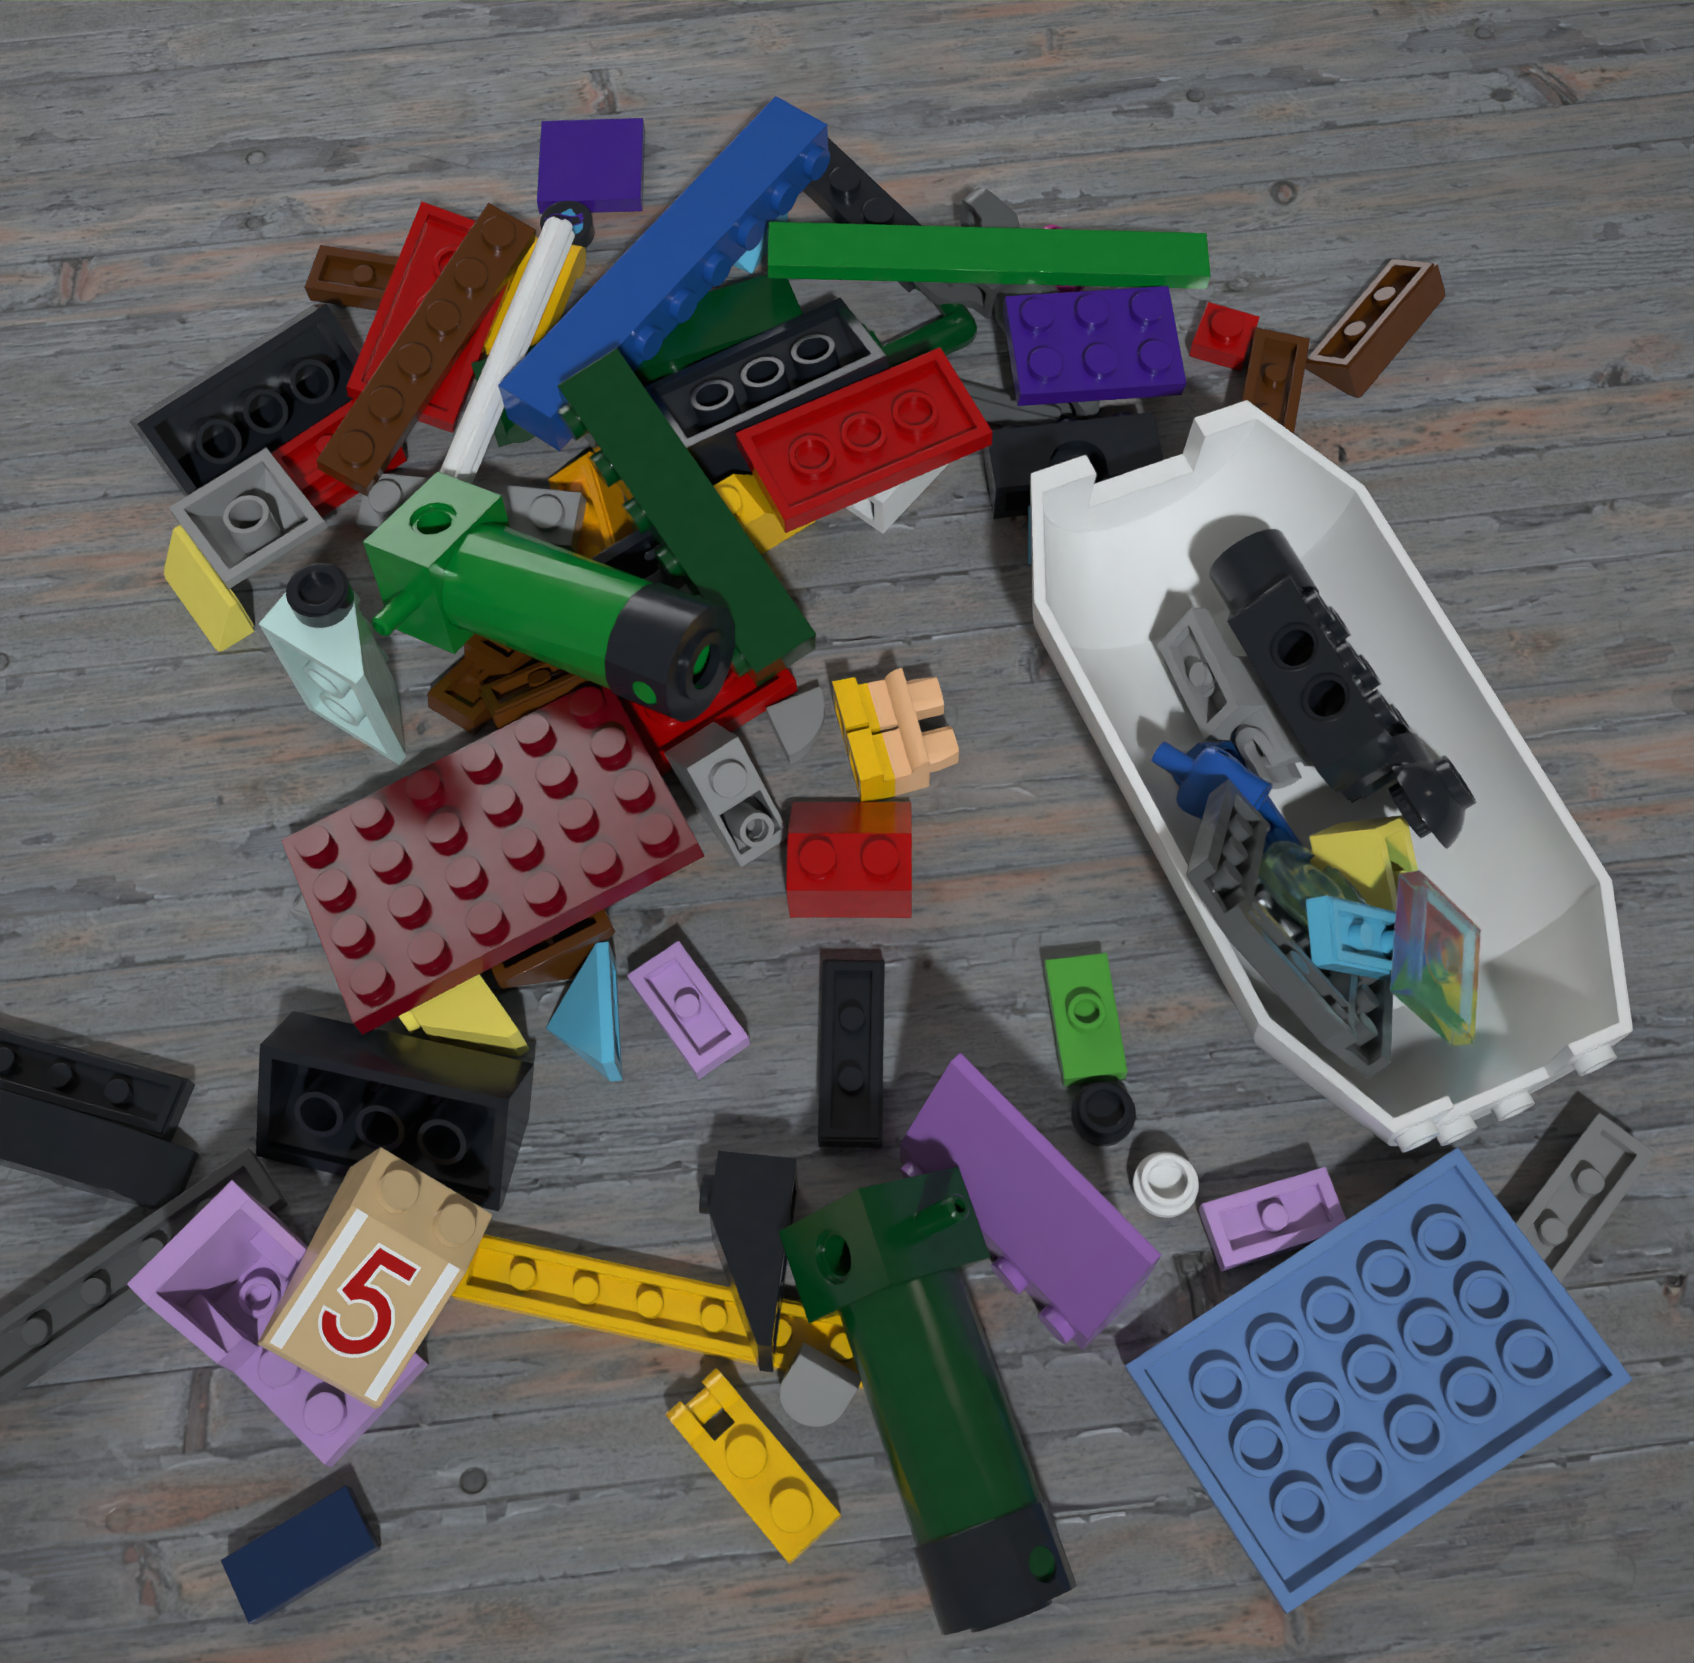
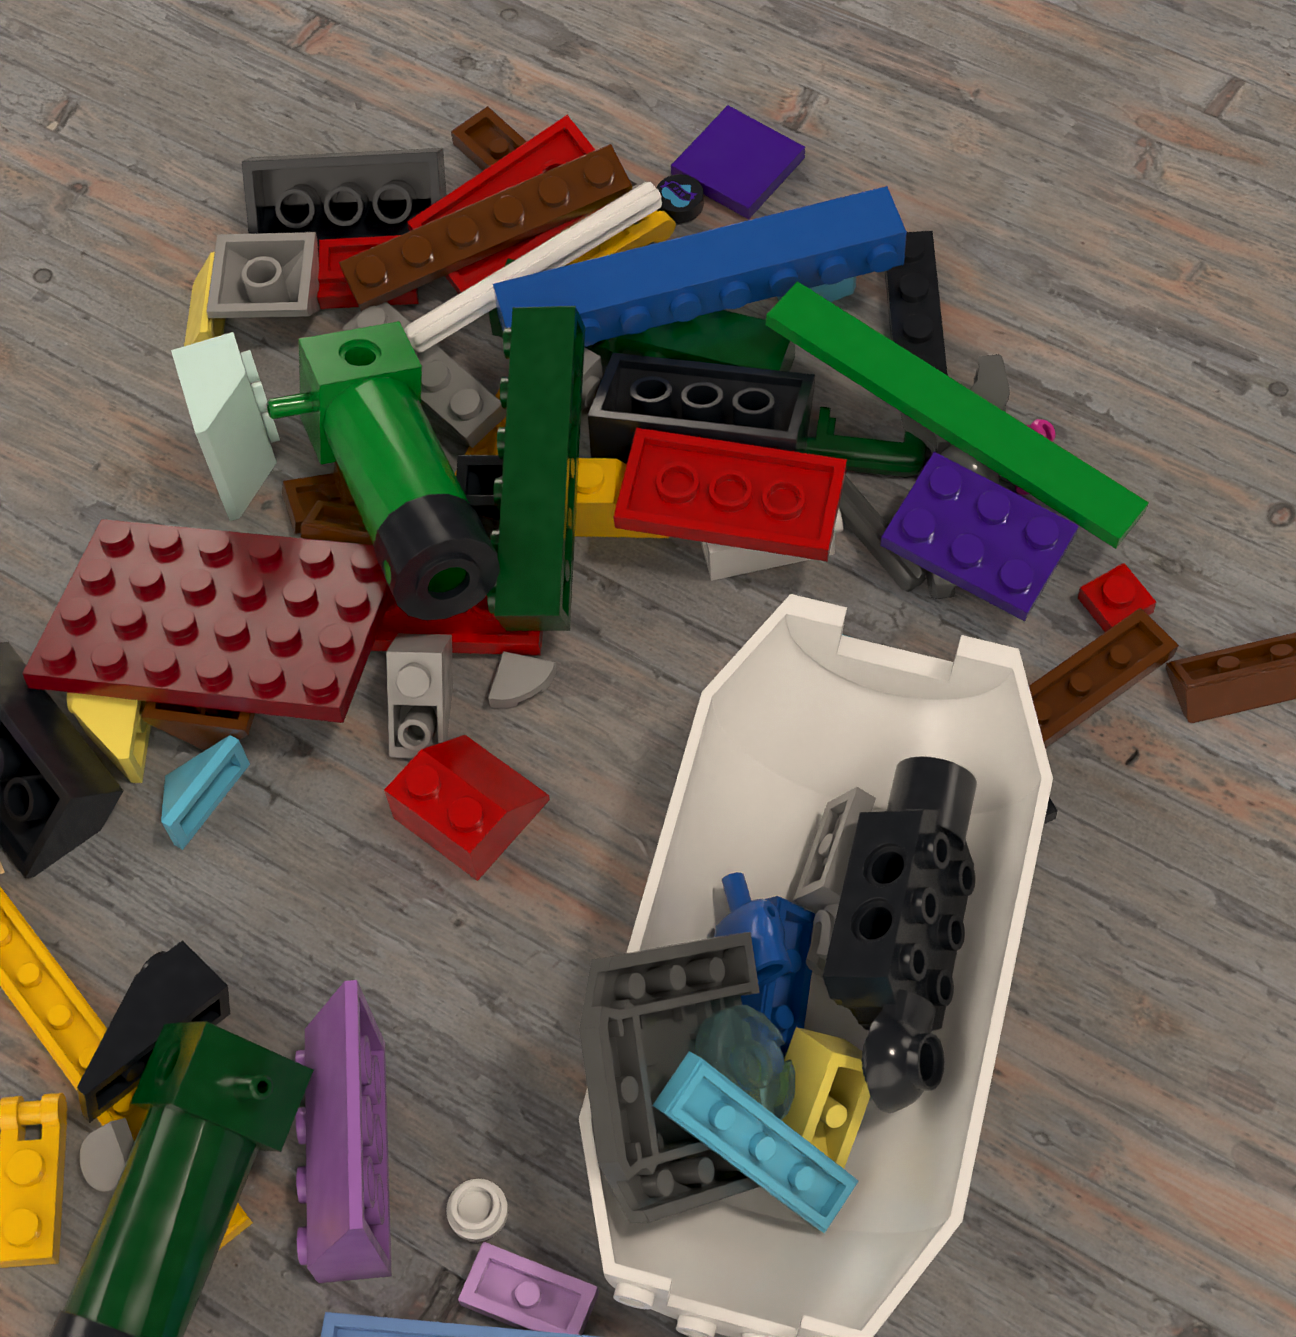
camera: 40 degrees right, 5 degrees down
(320, 595) = (222, 356): black tile -> none
(688, 1010) = (260, 831): lavender plate -> none
(851, 1054) = (347, 943): black tile -> none
(884, 733) = (566, 730): hips -> none
(1085, 1019) = (529, 1047): bright green plate -> none
(1103, 1113) = (479, 1124): black plate -> none
(1110, 443) = (881, 598): black arch -> none
(1435, 959) = (797, 1187): clear light blue tile -> none

